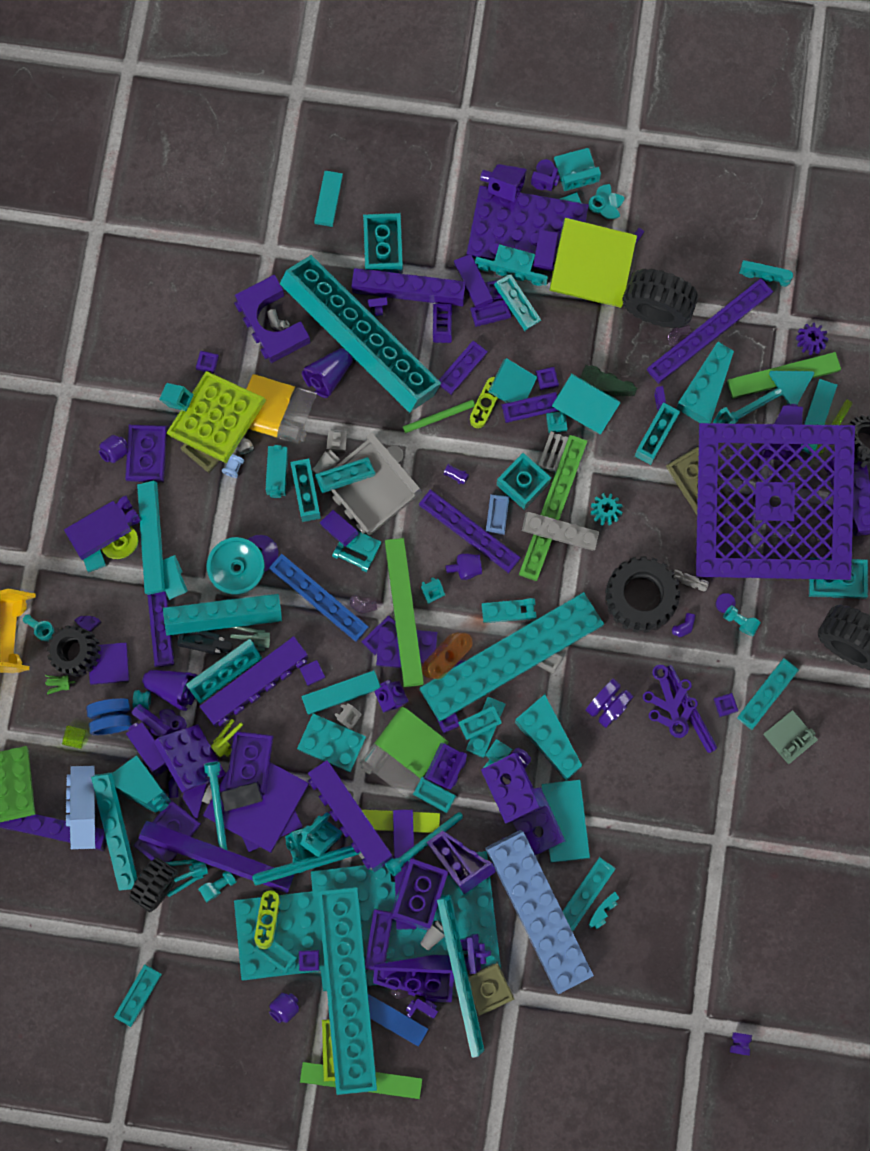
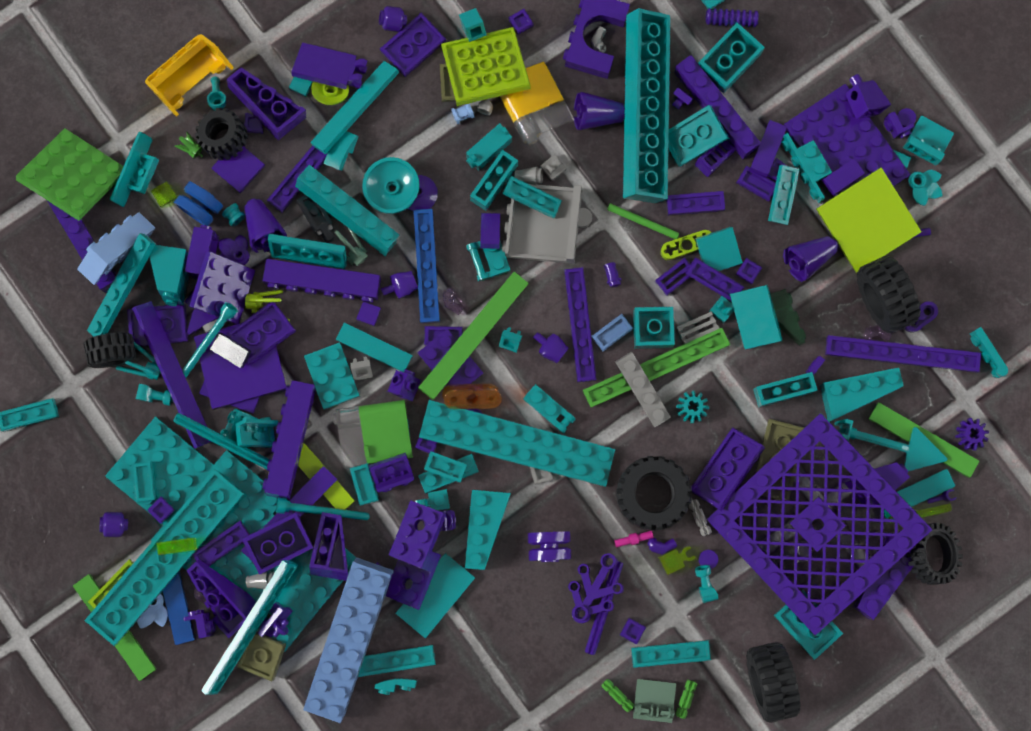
camera: 45 degrees right, 5 degrees up
(37, 739) = (136, 171): none -> teal bracket
(83, 598) = (267, 105): none -> dark purple wedge
(150, 720) = (223, 234): dark purple tile -> none
(264, 905) = (145, 456): lime beam -> none
(314, 628) = (402, 284): none -> dark purple piece
(349, 972) = (176, 546): none -> clear neon green piece
(354, 215) = (731, 17): none -> dark purple piece
(381, 1038) = (156, 613): none -> light blue plate
(415, 320) = (695, 136): none -> teal plate
(500, 448) = (663, 286): none -> dark purple tile
(579, 327) = (809, 256): none -> dark purple cone
(660, 641) = (633, 539): none -> dark pink bar
(674, 527) = (727, 469): none -> dark purple tile
(700, 281) = (924, 319): none -> dark purple plate
(703, 627) = (674, 561): none -> clear neon green plate
(762, 759) = (617, 695): none -> bright green axle
(810, 713) = (686, 699): none -> bright green axle
(837, 399) = (944, 496): none -> dark purple hand

